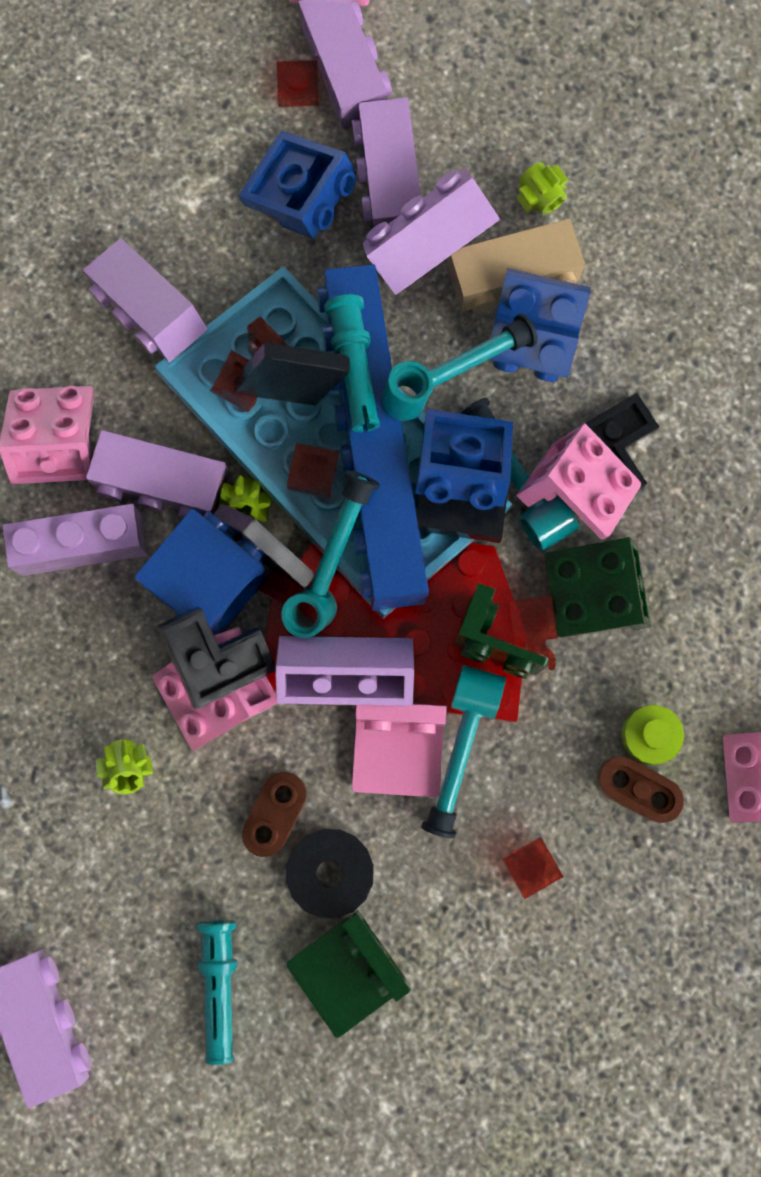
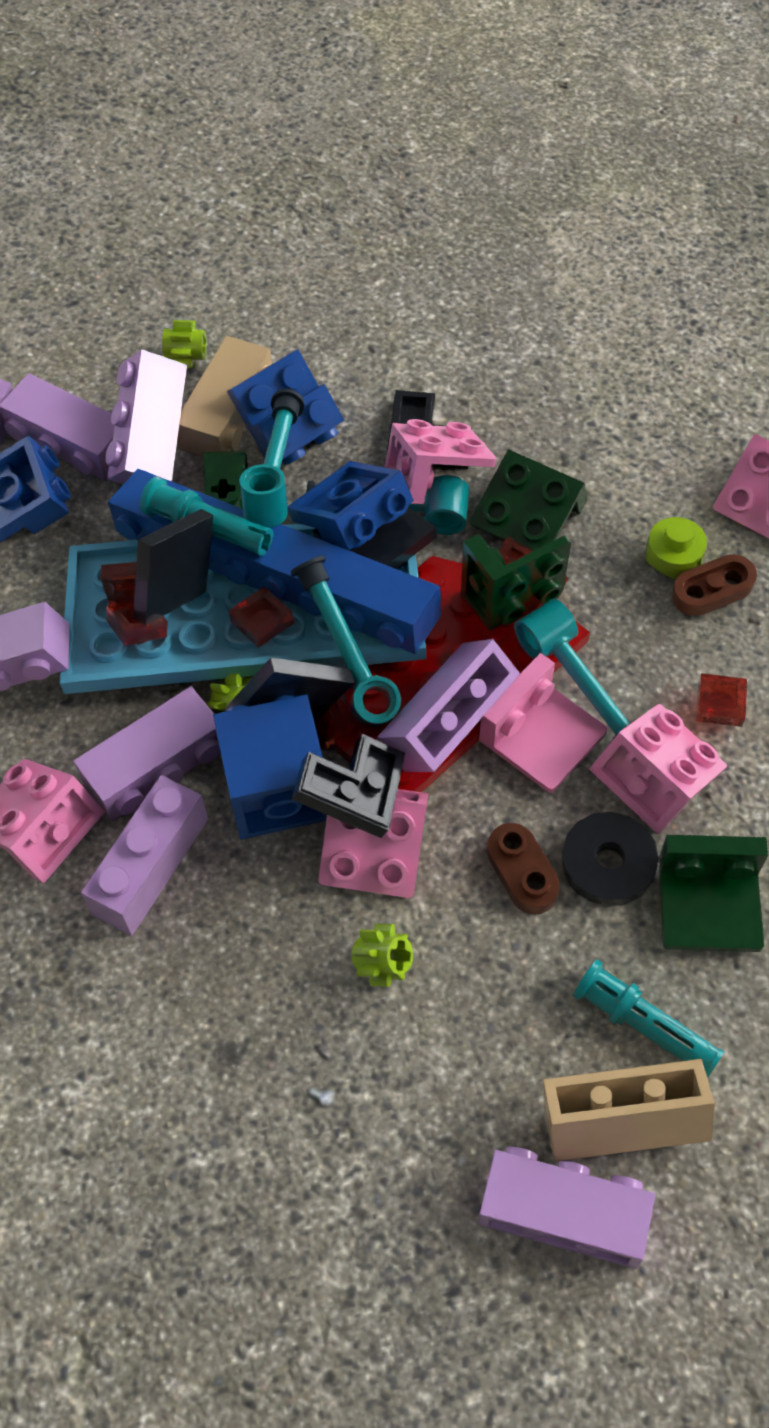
camera: 50 degrees left, 20 degrees down
(129, 1024) = (628, 1110): none -> tan brick
(434, 861) = (657, 766): none -> bright pink bracket
(436, 330) = (222, 475): none -> dark green piece

